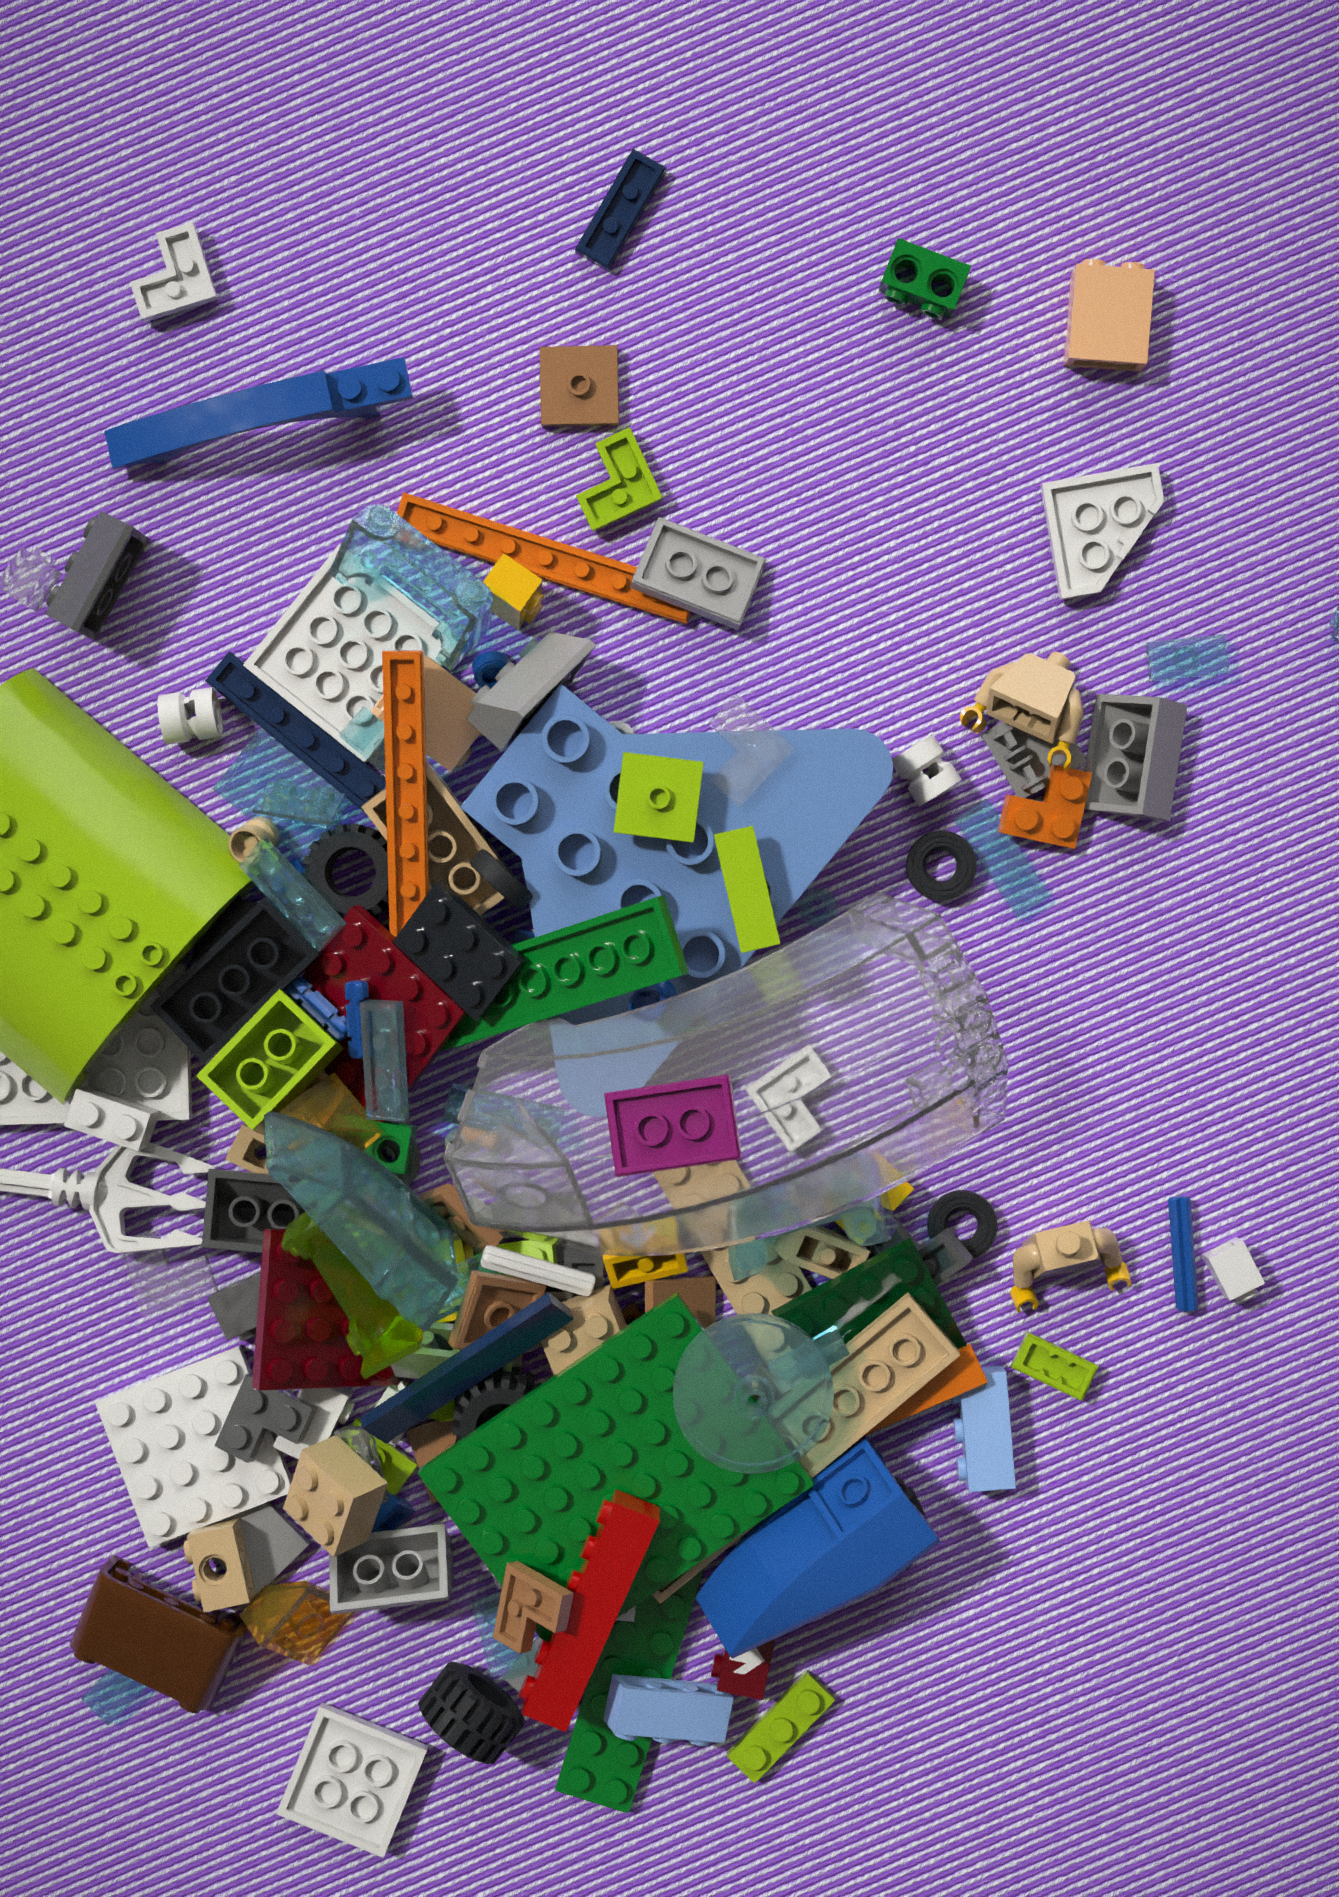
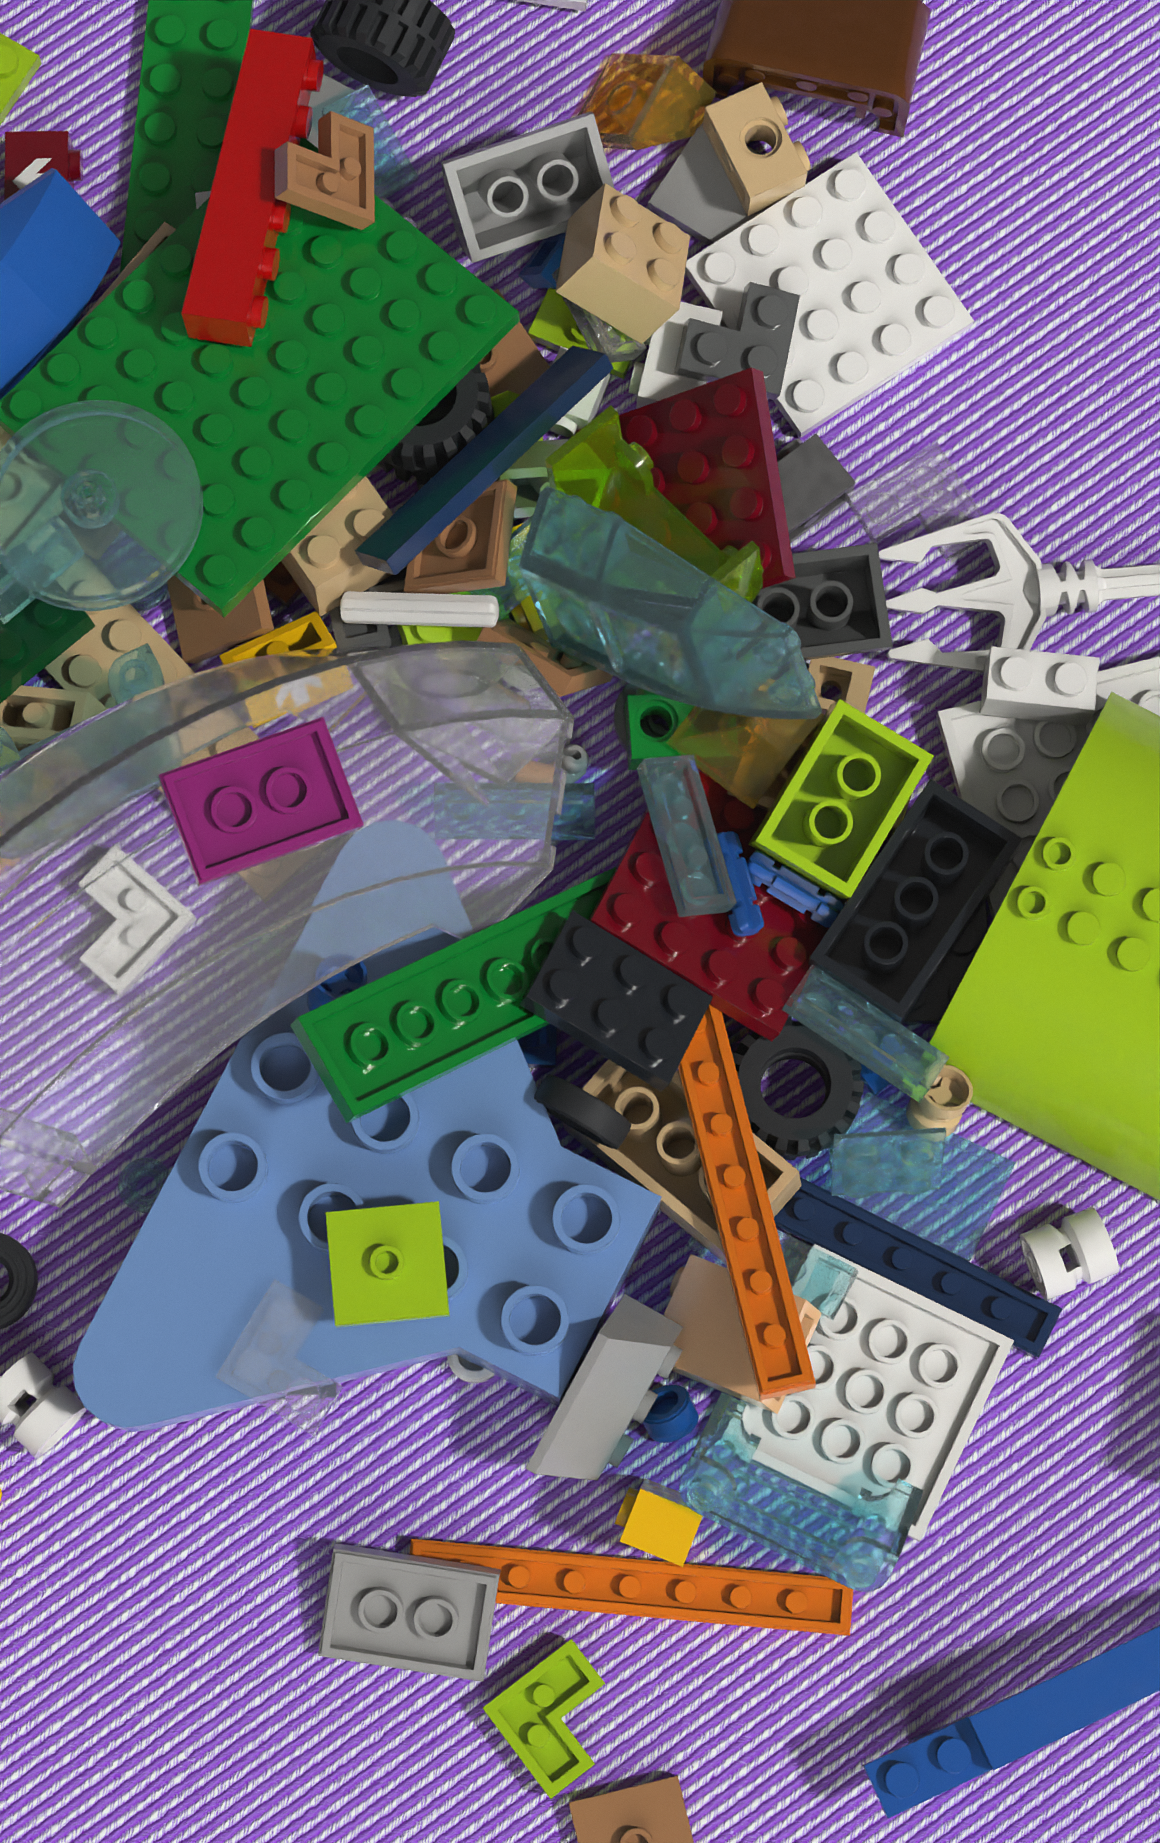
camera: 165 degrees right, 10 degrees down
(667, 1710) = (127, 93): light blue brick -> none
(746, 889) = (239, 1165): lime tile -> none

